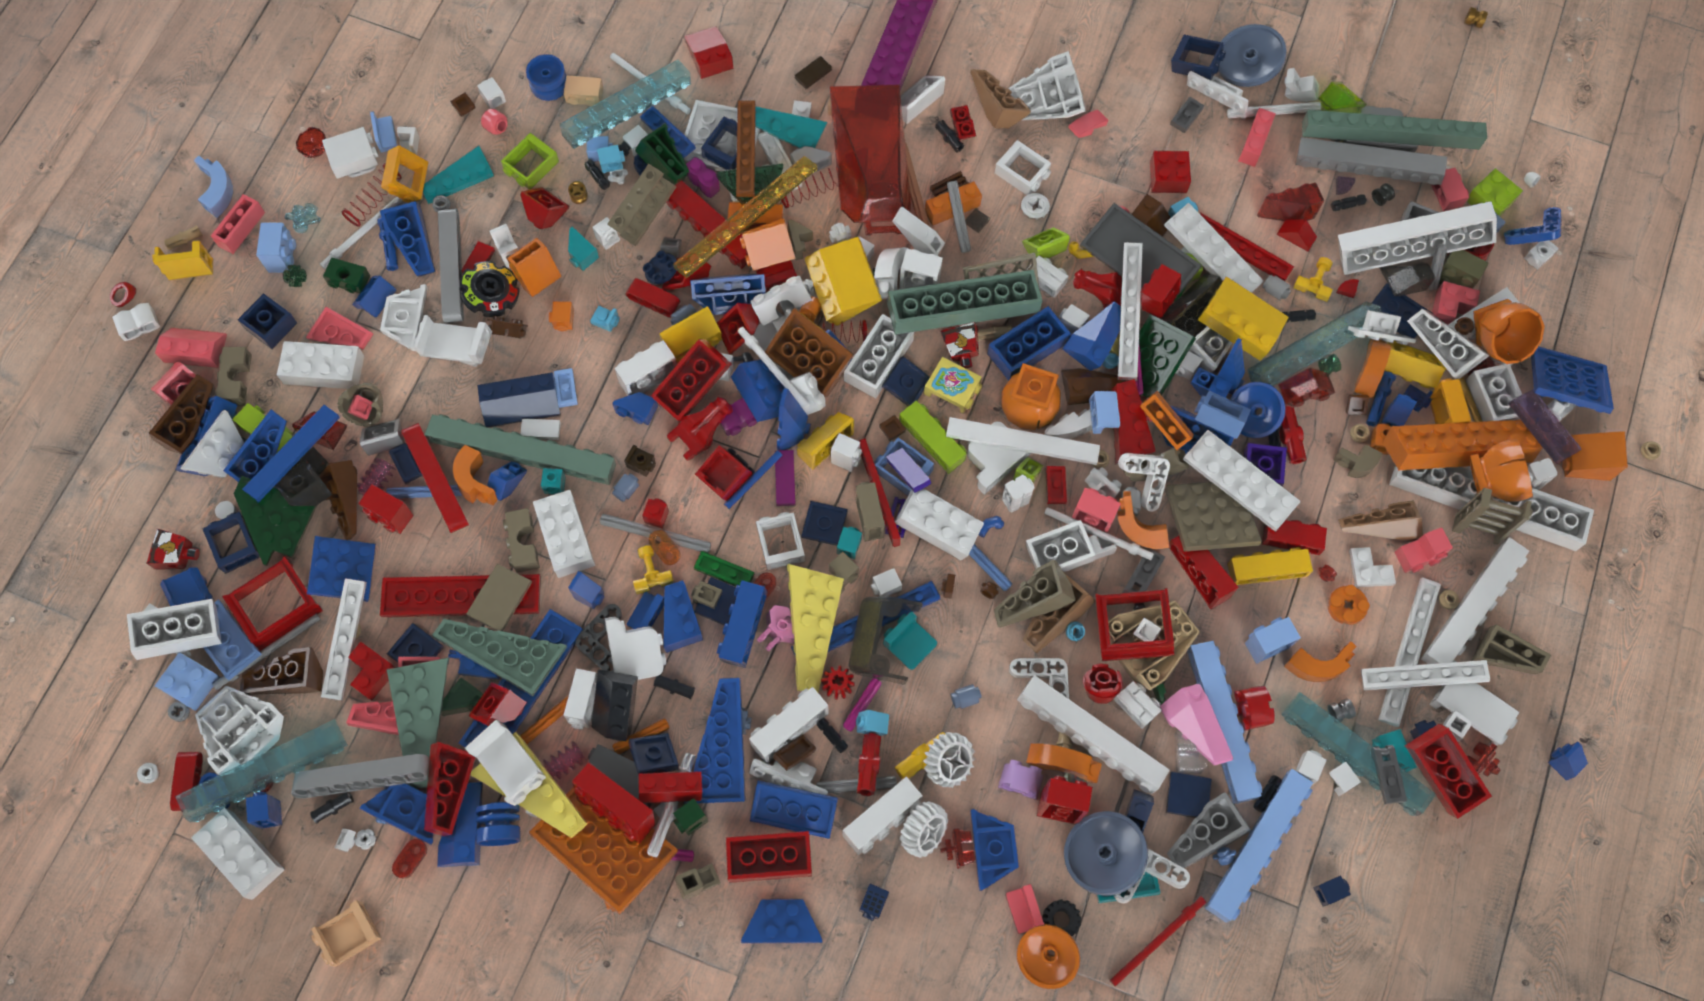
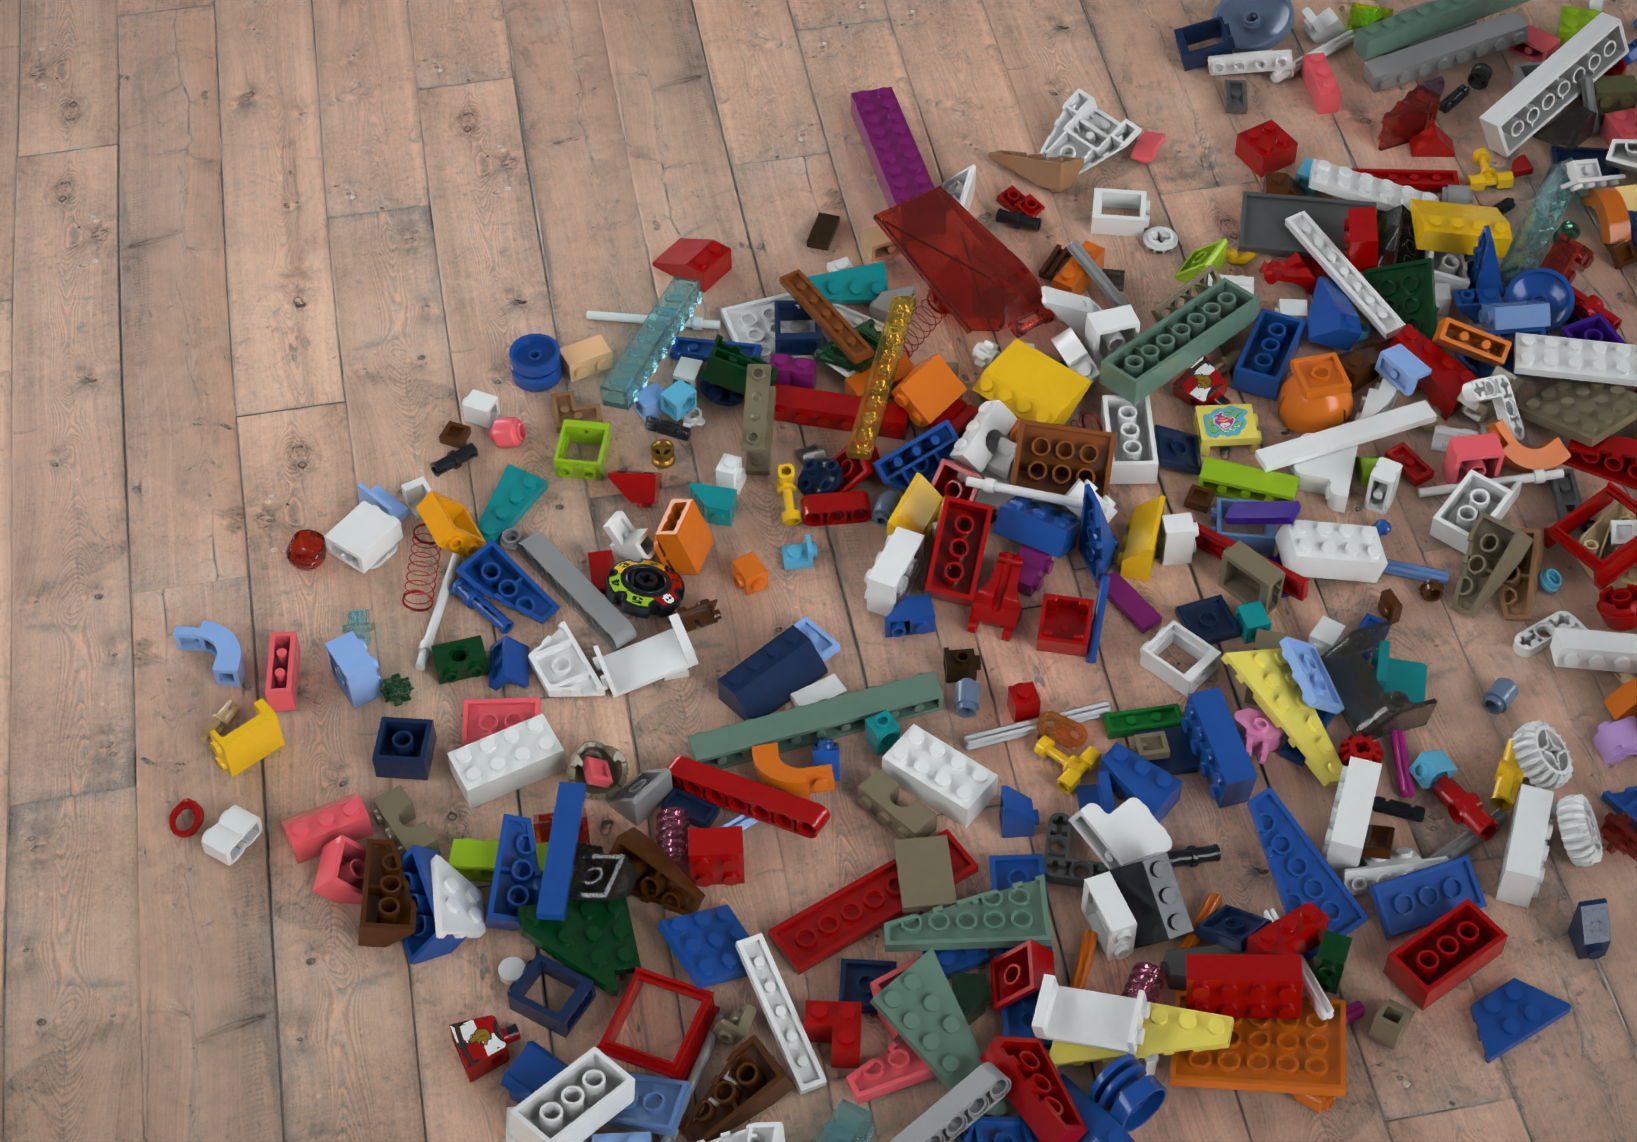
camera: 30 degrees left, 20 degrees down
(319, 630) = (737, 1026): none -> dark tan bracket
(449, 123) = (454, 459): none -> black pin
(543, 130) = (565, 408): none -> medium nougat plate
(631, 260) = (785, 487): none -> yellow bar
(842, 610) = (1311, 675): none -> light blue plate

